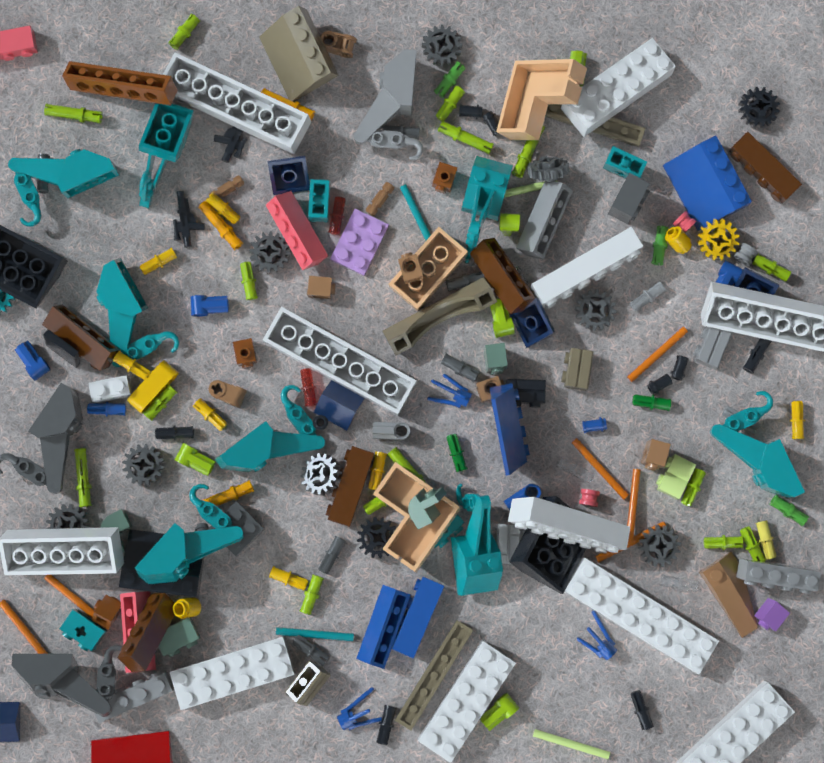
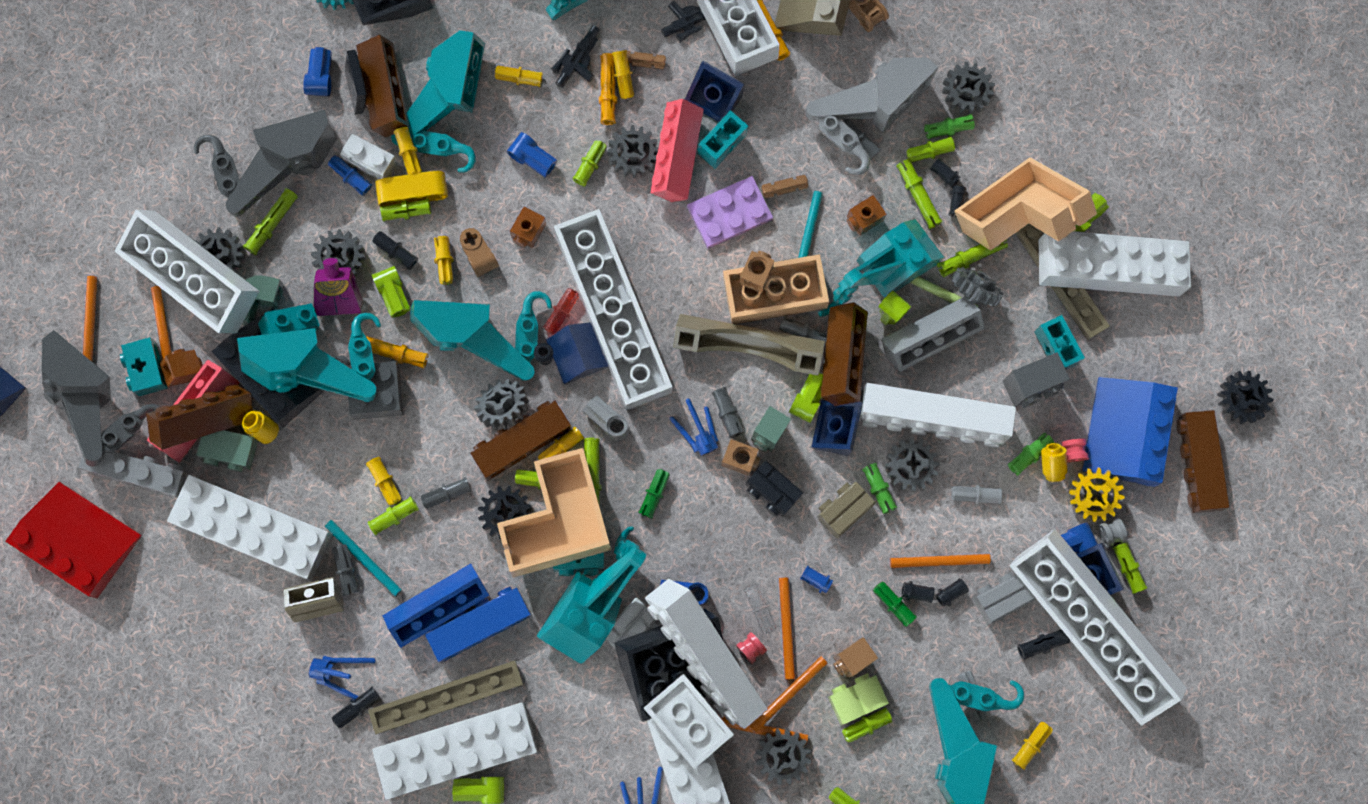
camera: 35 degrees right, 5 degrees down
(151, 531) = (289, 319): none -> teal brick
(161, 488) = (336, 290): none -> magenta torso
(320, 287) = (654, 224): medium nougat brick -> none
(337, 215) = (728, 169): clear red axle -> none
(423, 508) = (571, 515): brick -> none
(508, 427) = (725, 507): blue slope -> none
(587, 340) = (879, 488): none -> bright green pin
(590, 571) = (688, 721): none -> white plate

